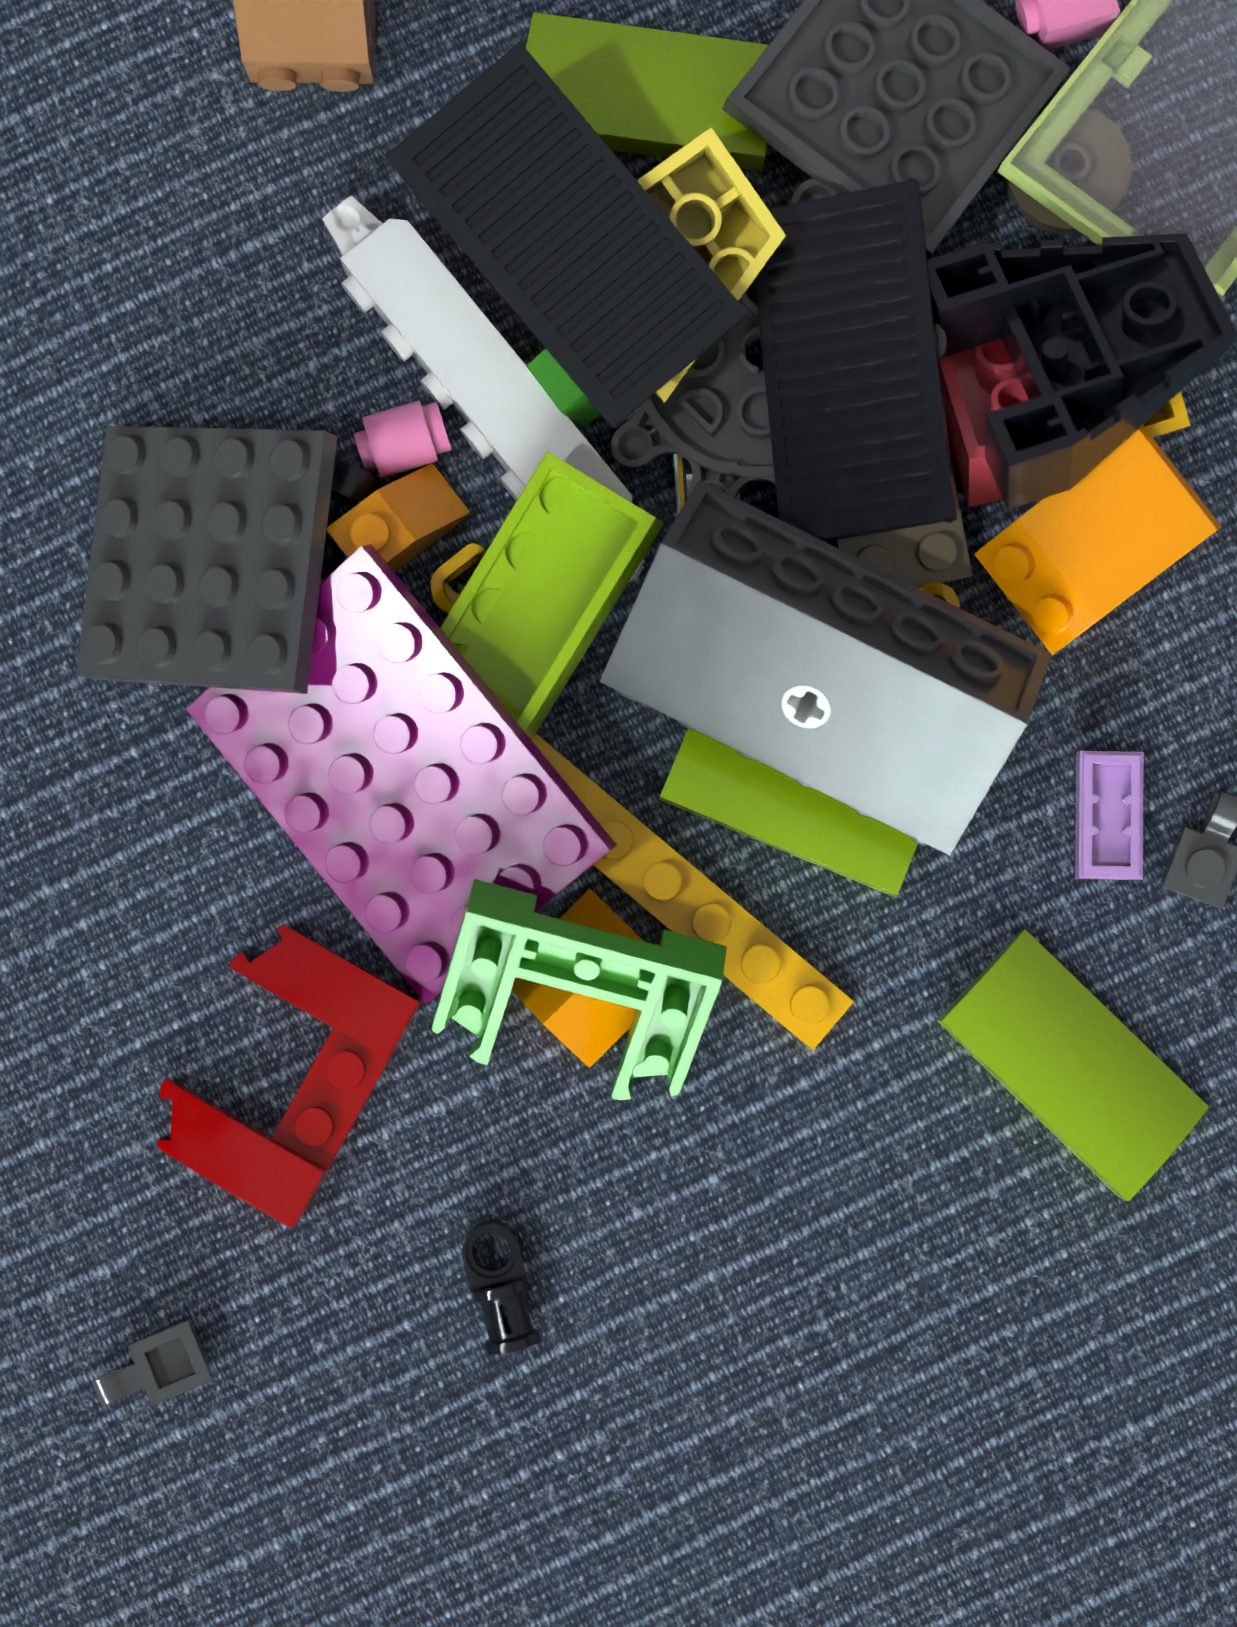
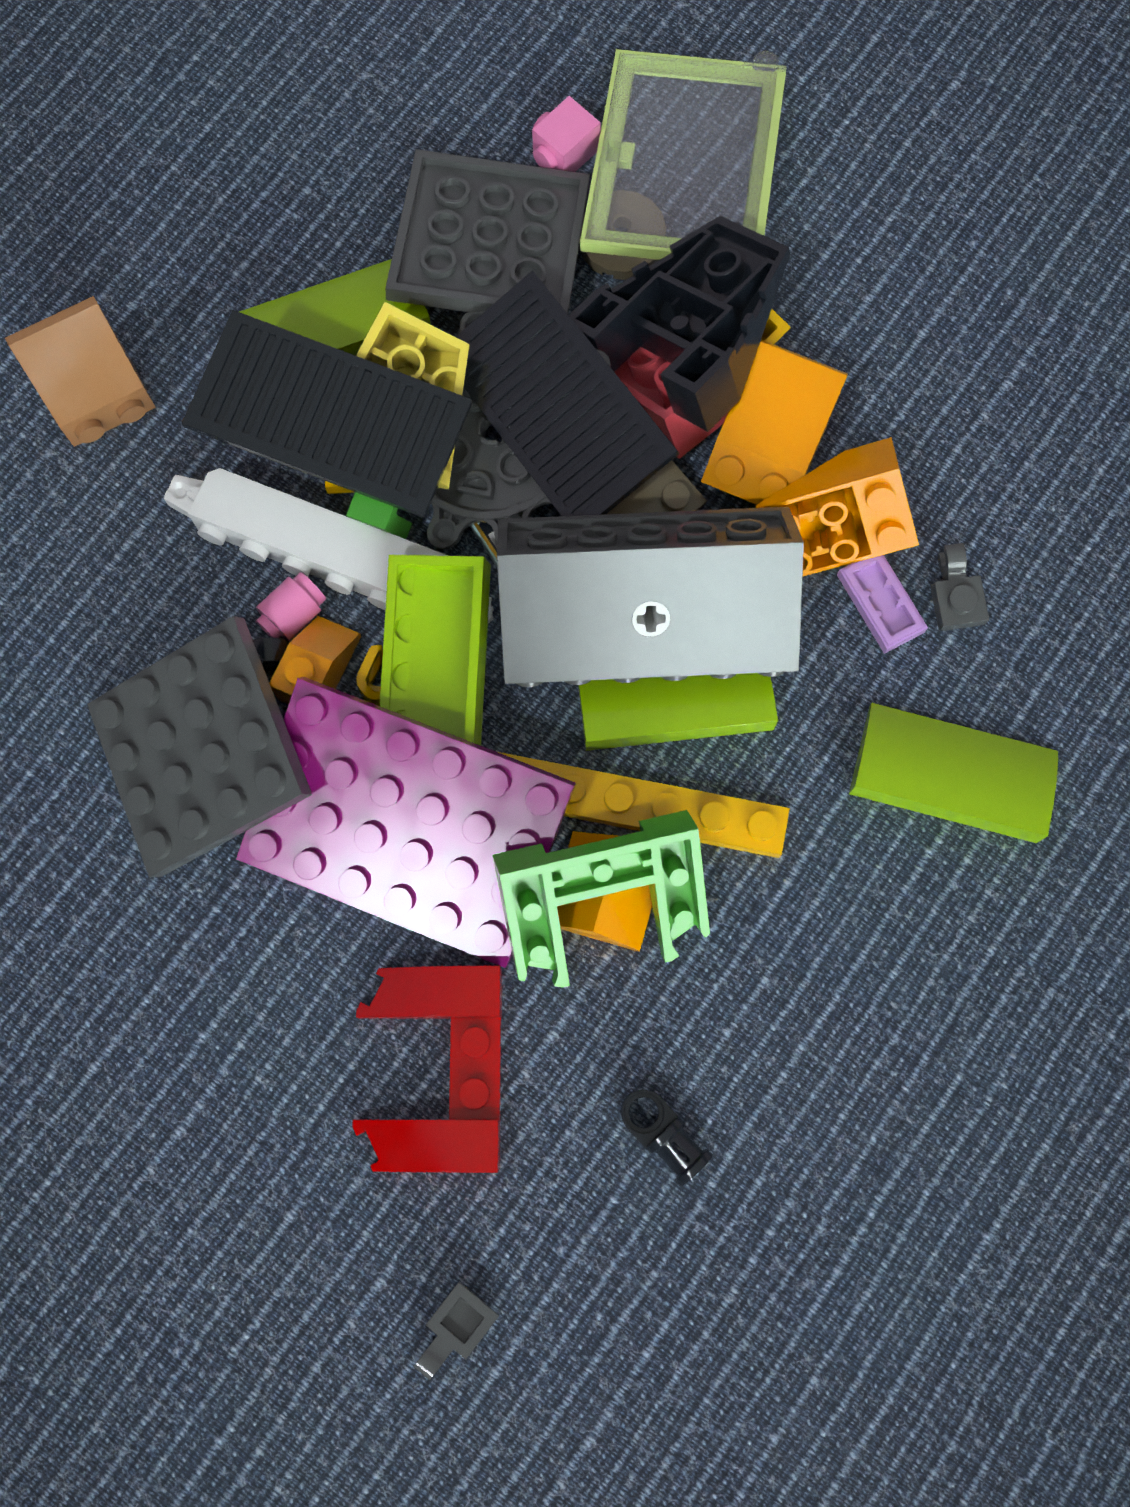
camera: 25 degrees left, 10 degrees down
(1129, 688) = (850, 508): none -> light orange slope

